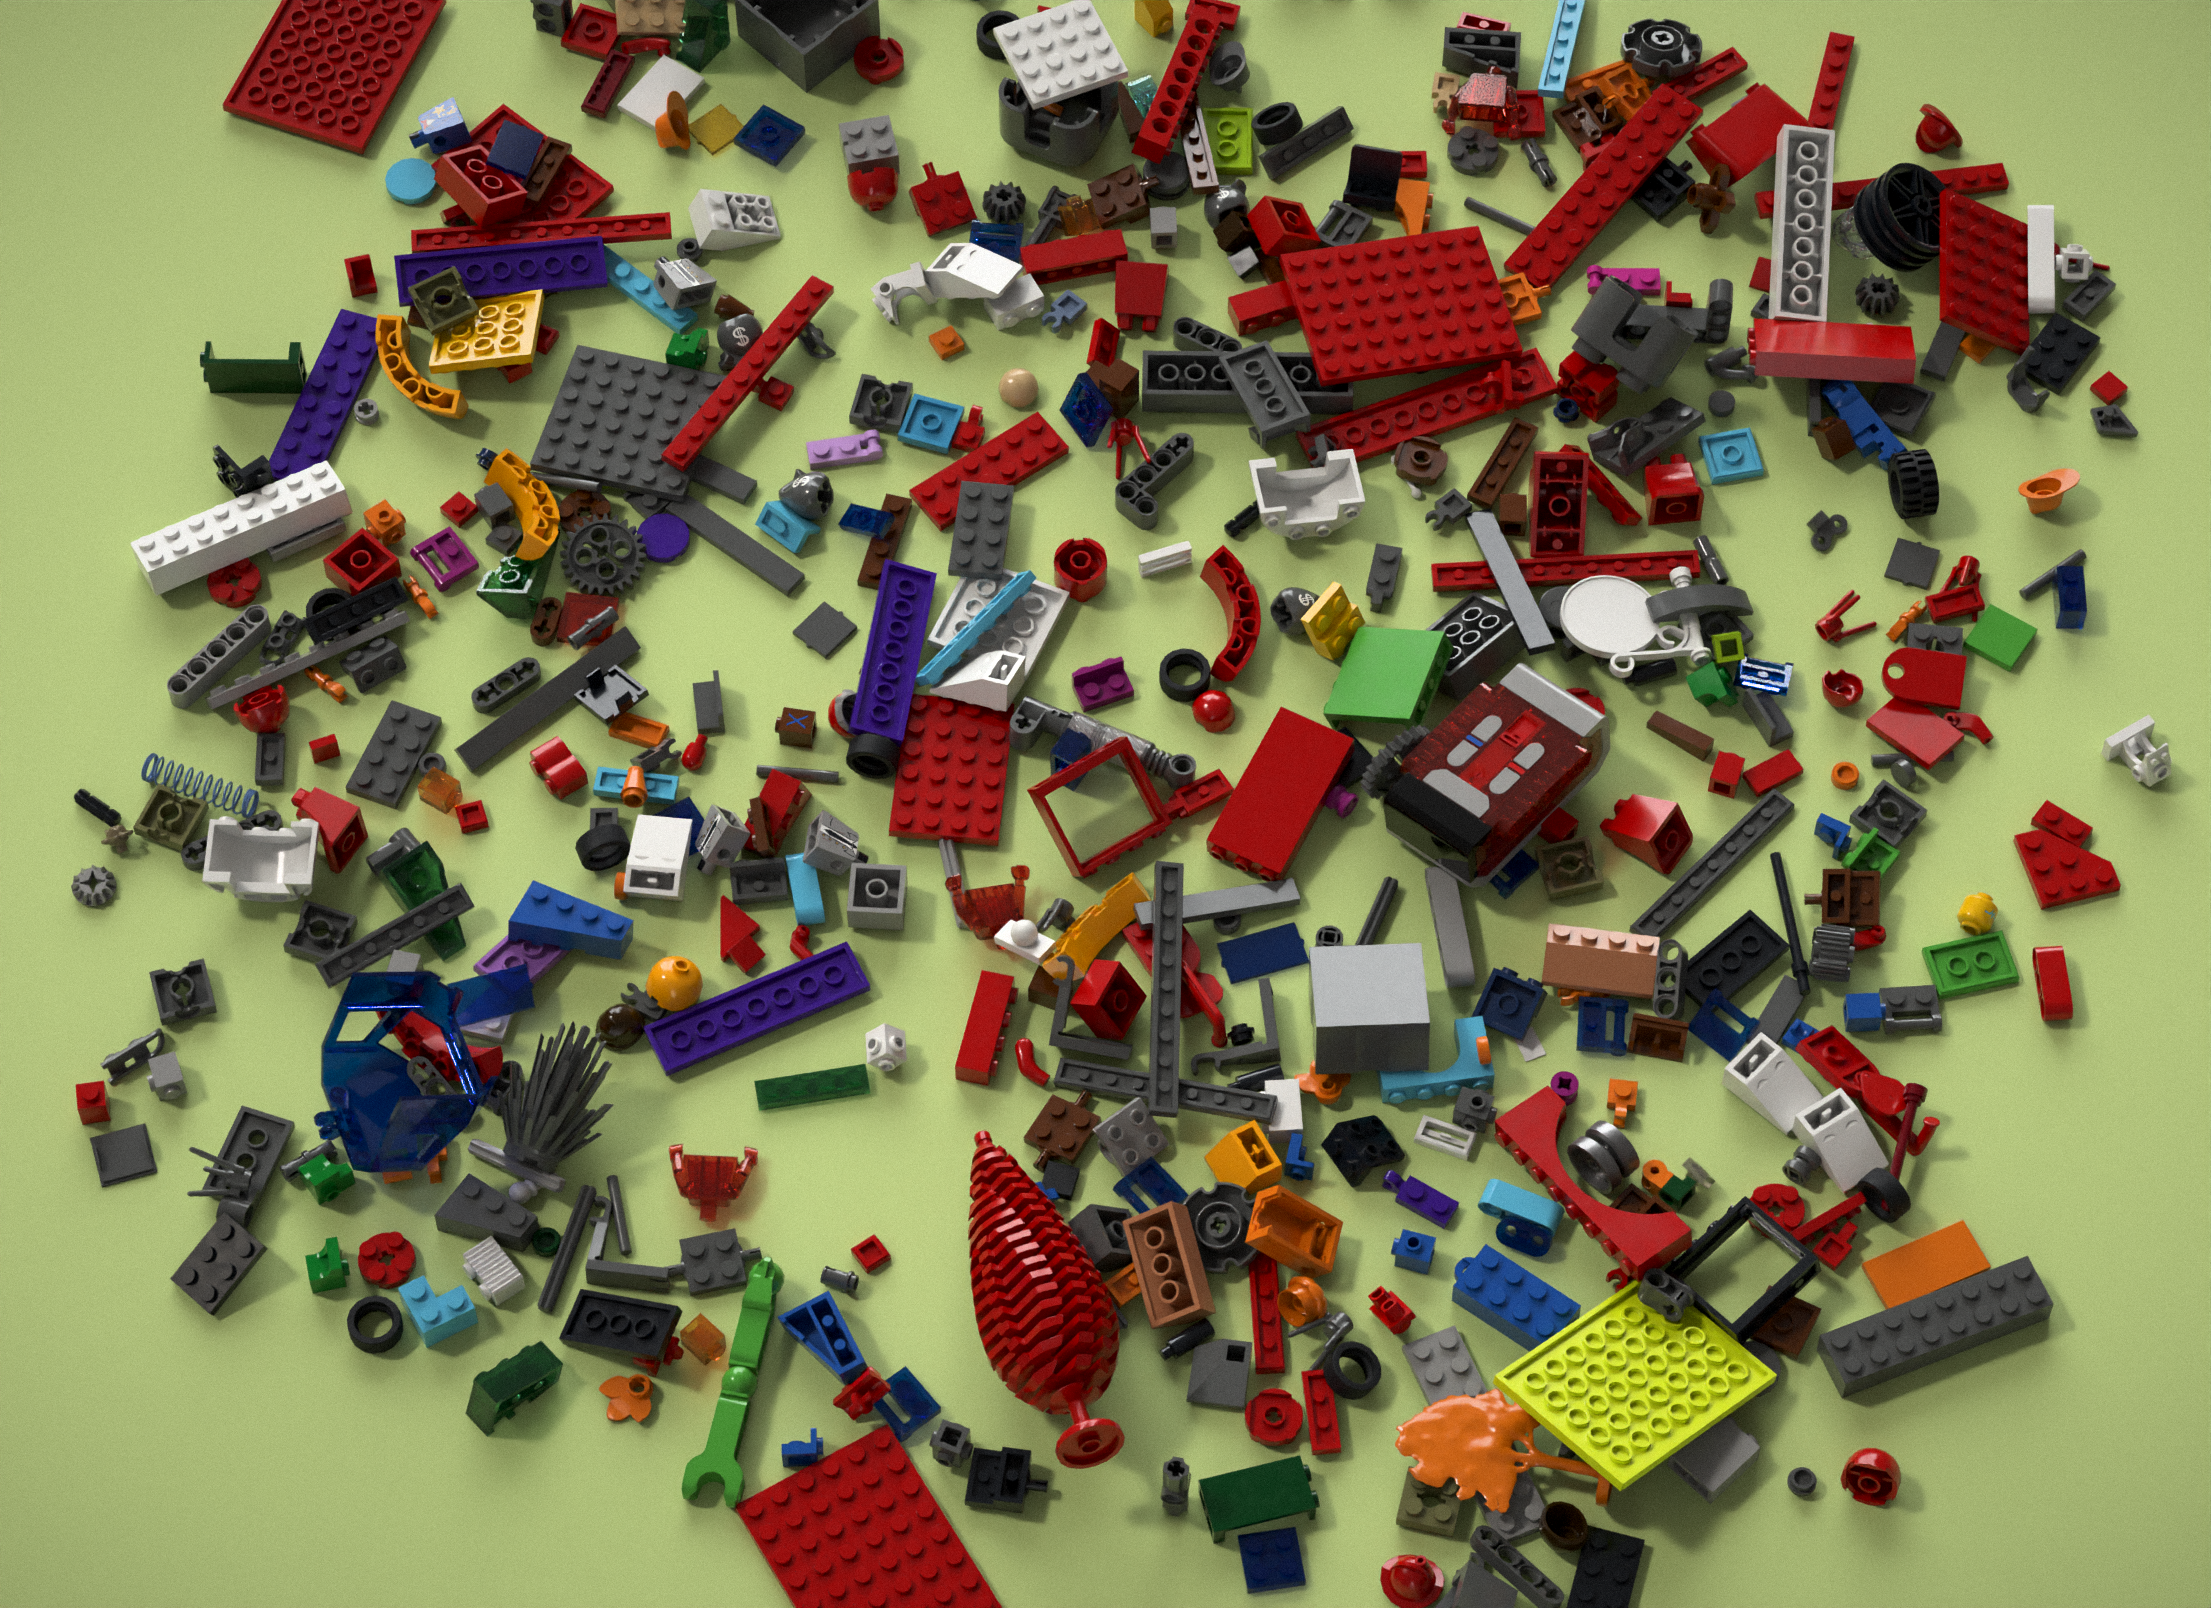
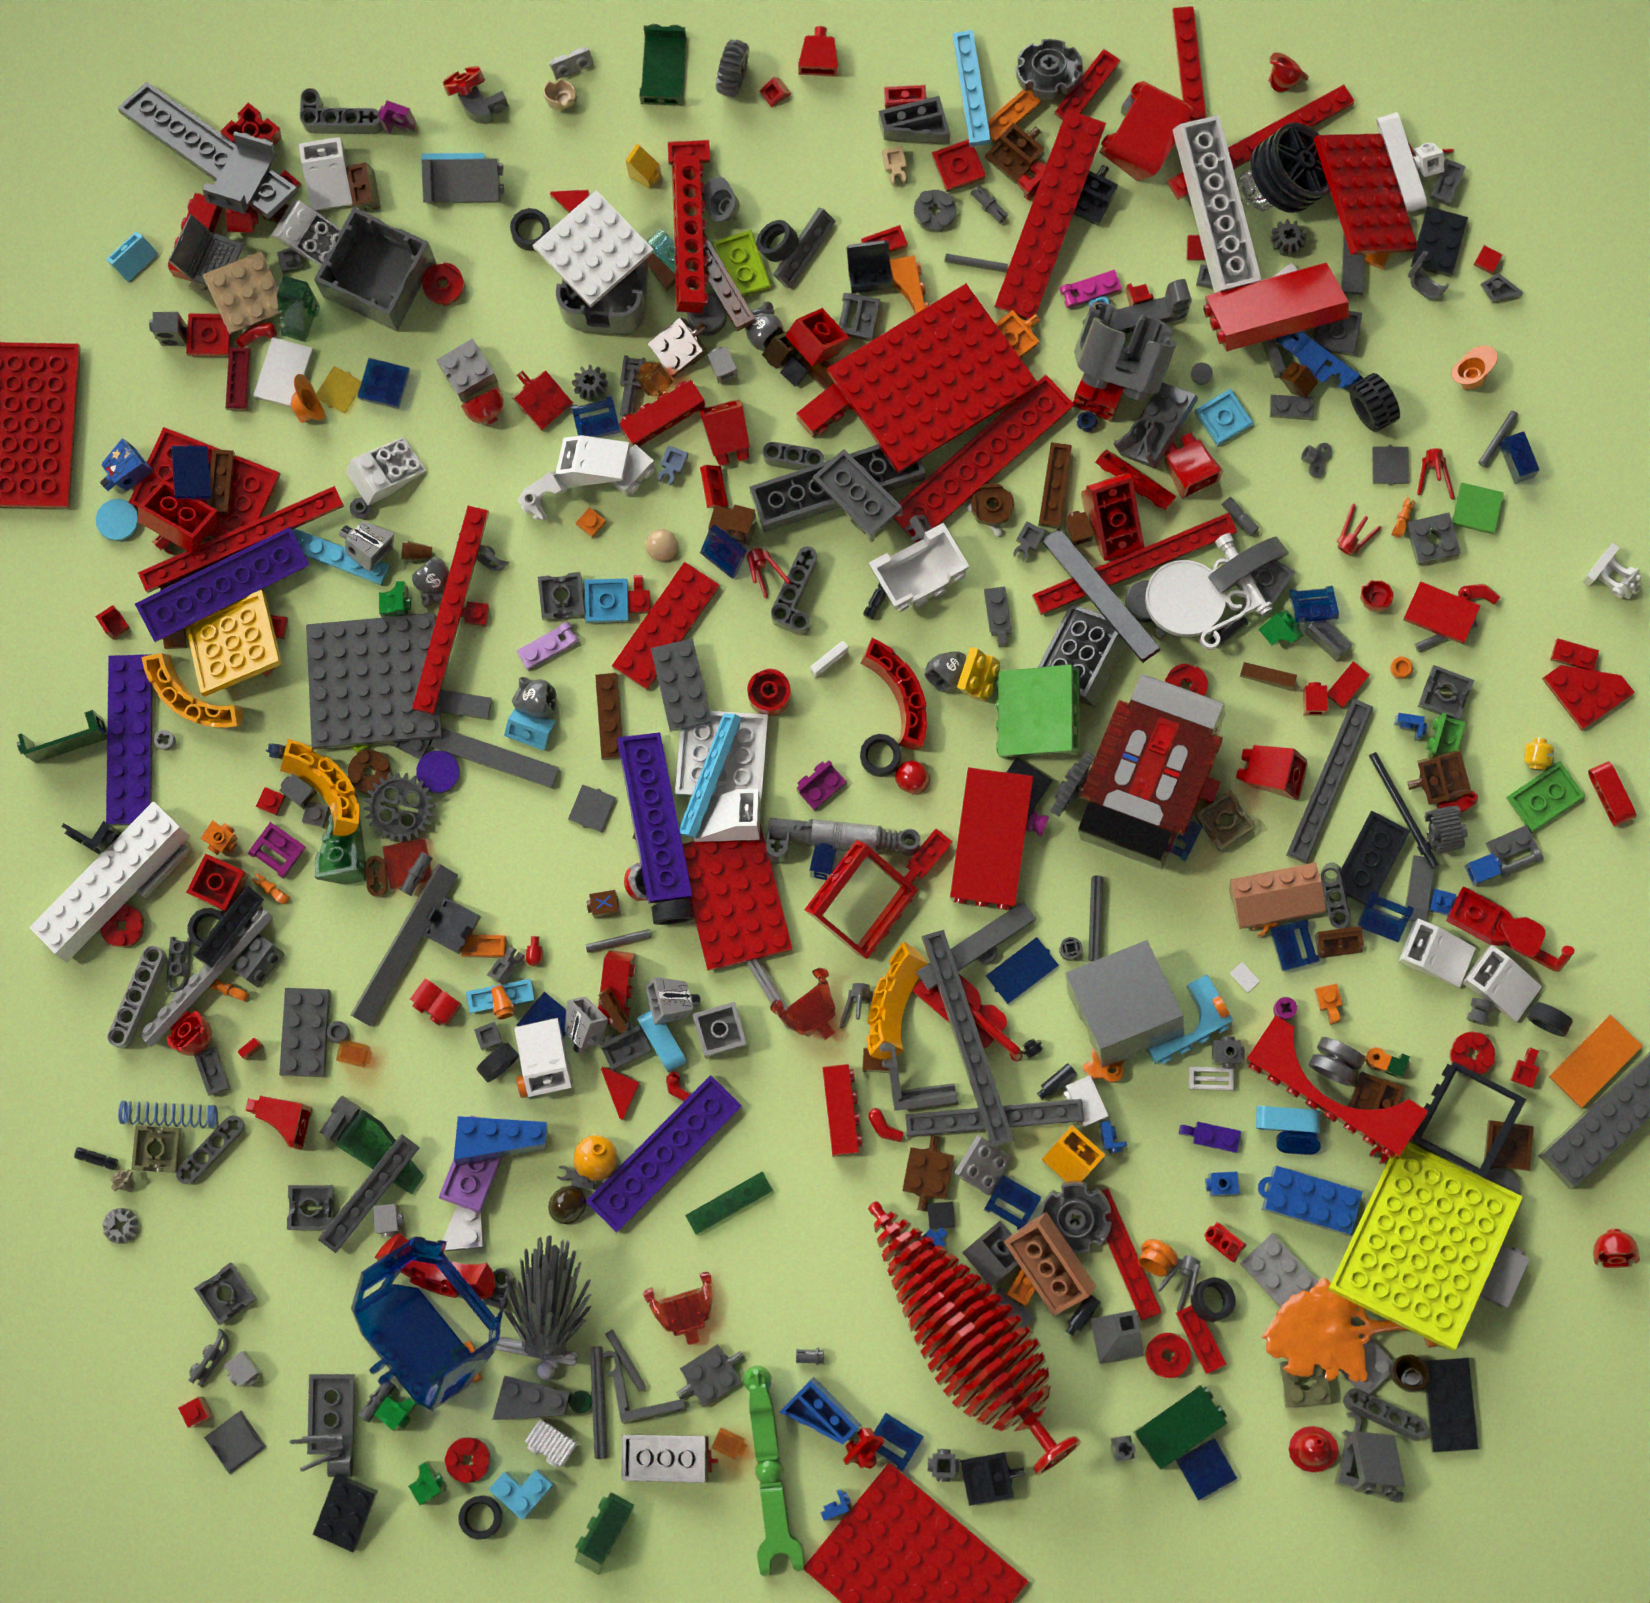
camera: 15 degrees left, 20 degrees up
(261, 862) = (241, 1167): white cylinder -> none
(430, 1069) = (434, 1307): dark grey beam -> none
(443, 316) = (204, 630): olive brick -> none
(471, 816) = (385, 1064): red tile -> none
(494, 995) = (462, 1217): clear blue piece -> none
(508, 674) = (376, 941): dark grey beam -> none
(568, 482) = (355, 751): dark grey bar -> none
(625, 1400) = (690, 1511): orange plate -> none
(709, 706) = (529, 907): dark grey panel -> none
(745, 953) = (638, 1110): red tile -> none
(866, 521) = (590, 706): clear blue plate -> none
(870, 1254) = (824, 1325): red tile -> none
(886, 1047) = (774, 1155): white brick -> none
(1025, 940) = (847, 1034): white tile -> none
(1108, 999) = (926, 1060): red brick -> none
(1252, 1052) = (1046, 1060): dark grey hinge -> none
(1293, 1233) = (1134, 1208): orange piece -> none
(1360, 1146) = (1155, 1111): black bracket -> none
(1449, 928) = (1155, 904): light grey beam -> none
(1486, 100) = (932, 165): clear red torso -> none
(1500, 385) = (1033, 422): red hips -> none
(1510, 1002) = (1221, 952): dark blue plate -> none
(1625, 91) = (1039, 122): orange plate -> none
(1664, 1293) = (1426, 1162): dark grey piece -> none
(1697, 1173) = (1407, 1046): clear smoke plate -> none
(1712, 198) = (1136, 197): reddish brown plant -> none
(1721, 362) = (1193, 332): dark grey plant -> none
(1727, 647) = (1284, 596): lime brick -> none
(1801, 1481) = (1564, 1269): dark grey plate -> none
(1815, 469) = (1291, 407): none -> dark grey plate
(1828, 1219) = (1513, 1051): red plate -> none
(1903, 773) = (1445, 652): dark grey tile -> none
(1914, 1096) = (1547, 932): dark red piece -> none
(1927, 677) = (1438, 567): red tile -> none
(1954, 603) = (1434, 491): red tile -> none

